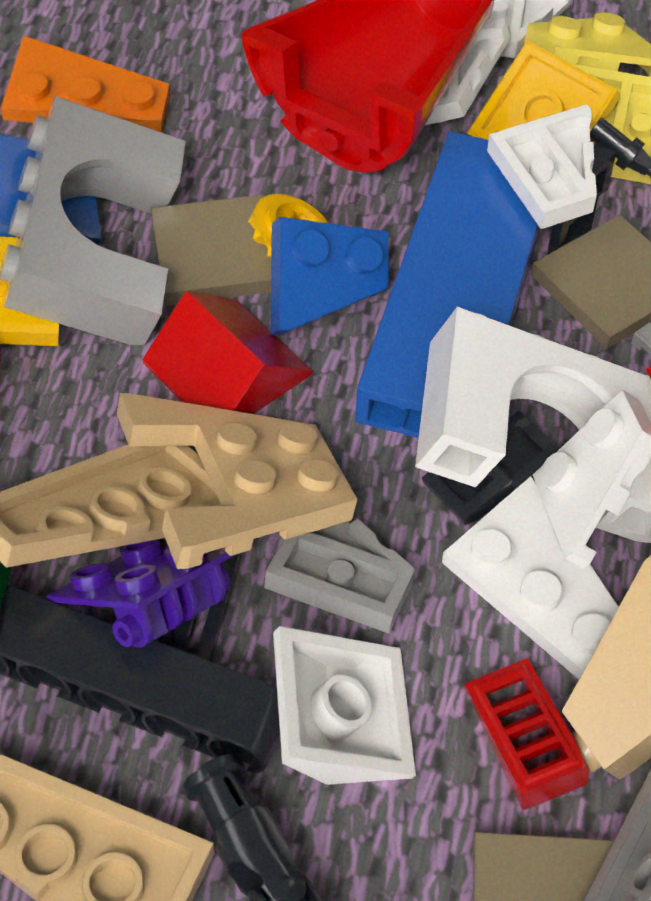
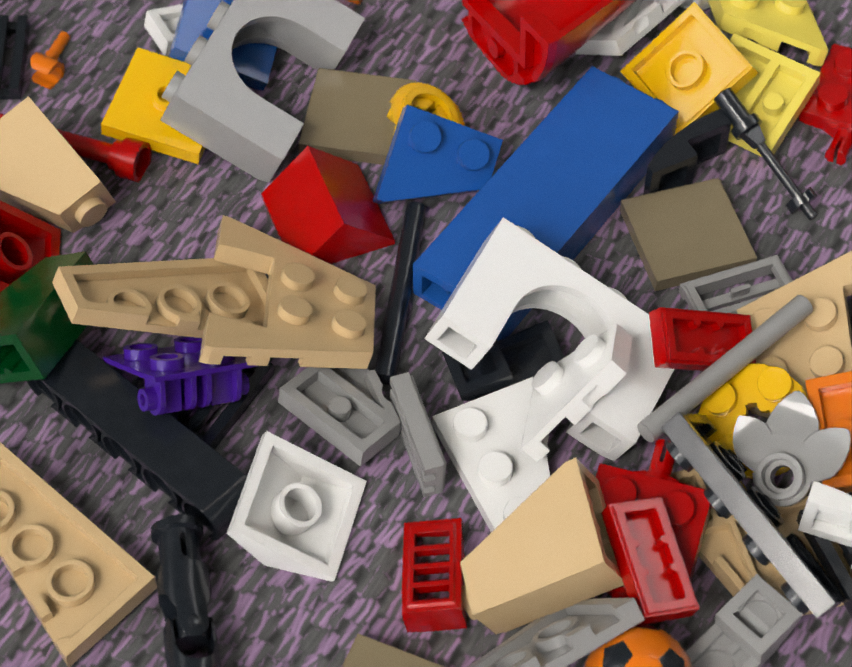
camera: 20 degrees right, 0 degrees up
(343, 424) = (400, 292): none -> black bar
(442, 578) = (418, 435): none -> light grey tile
(549, 165) = (660, 117): white wing -> none

